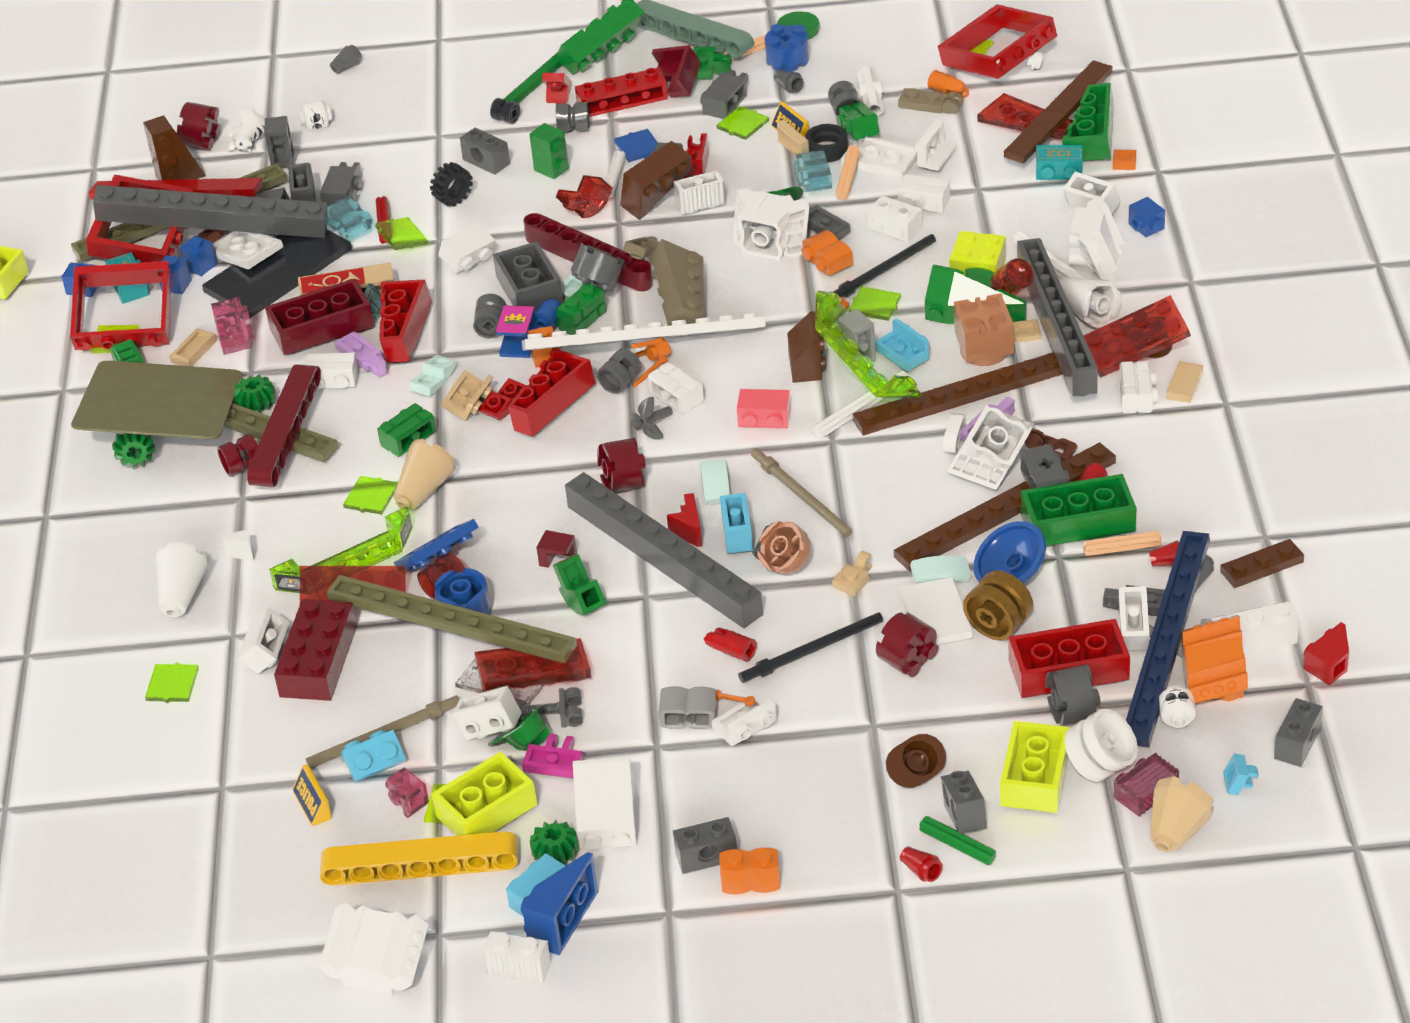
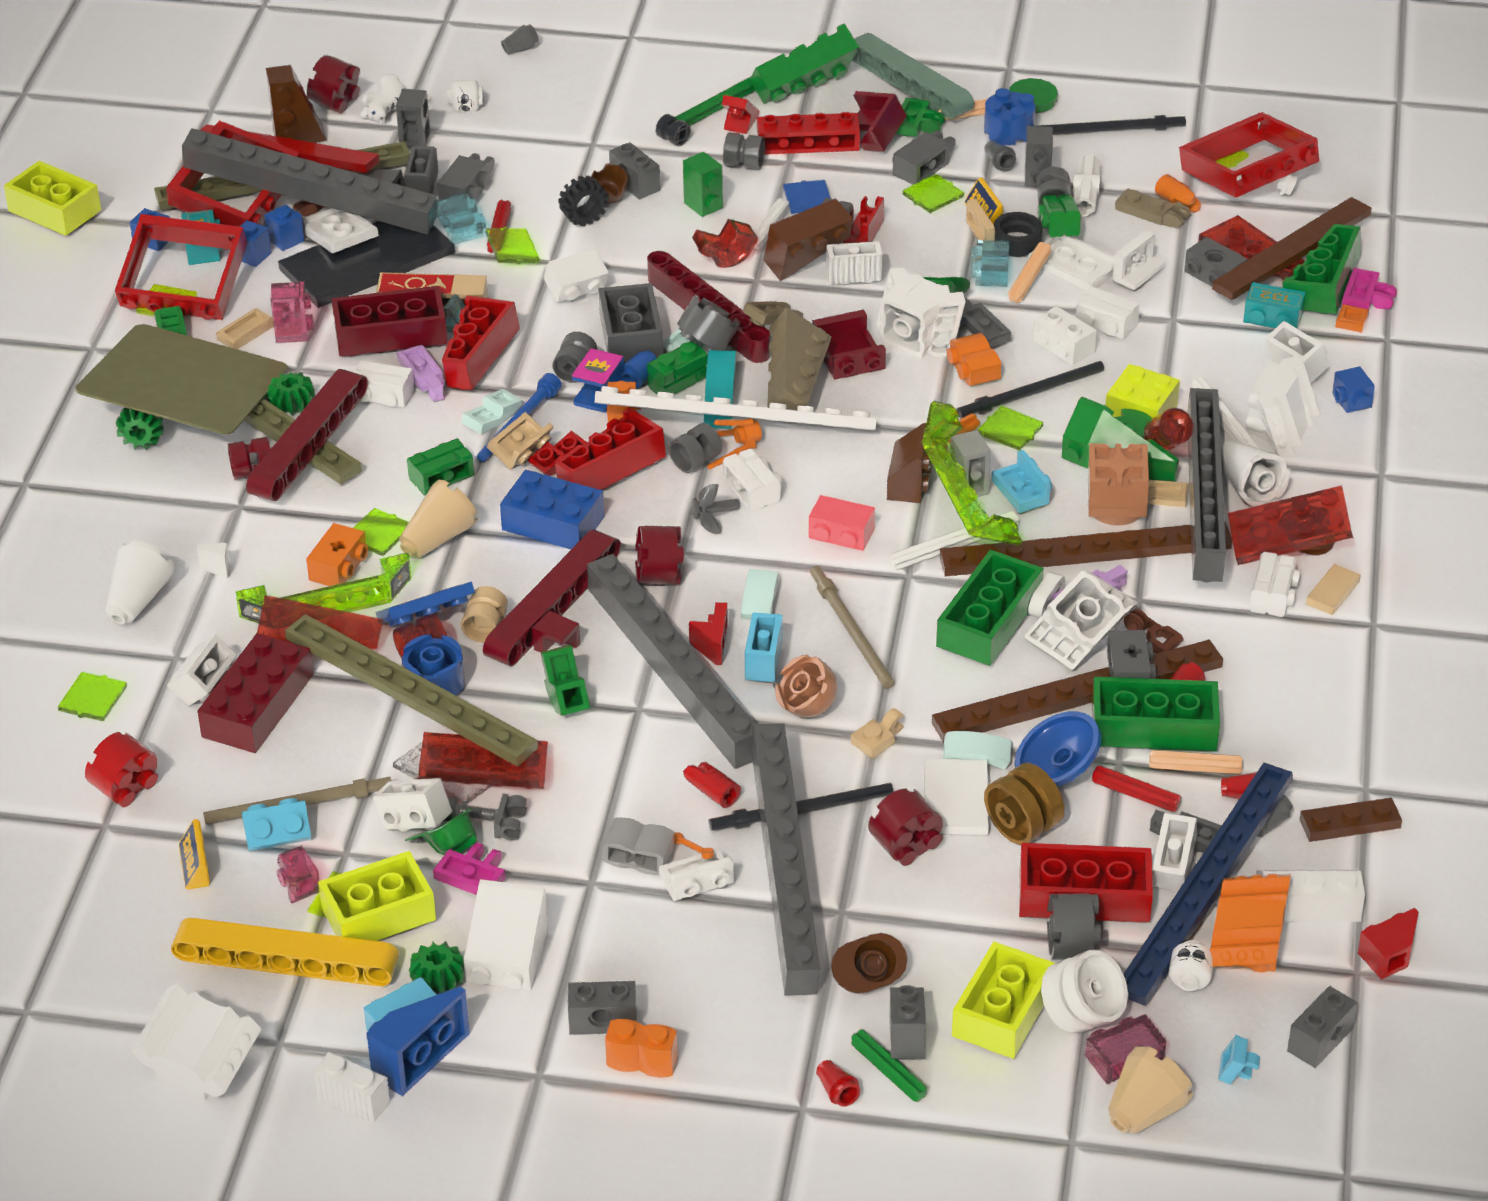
camera: 10 degrees right, 0 degrees up
(224, 736) = (122, 768): none -> red brick
(344, 521) = (337, 555): none -> orange brick
(471, 161) = (613, 180): none -> reddish brown hair
(474, 345) = (547, 387): none -> blue piece
(489, 544) = (483, 613): none -> tan wheel
(516, 447) = (551, 509): none -> blue brick
(541, 515) = (554, 593): none -> dark red beam
(620, 312) = (720, 382): none -> teal slope
(721, 263) = (851, 346): none -> dark red panel
(816, 692) = (785, 861): none -> dark grey brick
(823, 73) = (1038, 152): none -> dark grey brick
(910, 29) = (1159, 122): none -> black bar
(912, 453) = (988, 607): none -> green brick
(995, 135) = (1210, 260): none -> dark grey brick
(1081, 574) = (1136, 788): none -> red axle
(1128, 134) = (1366, 289): none -> dark pink hinge

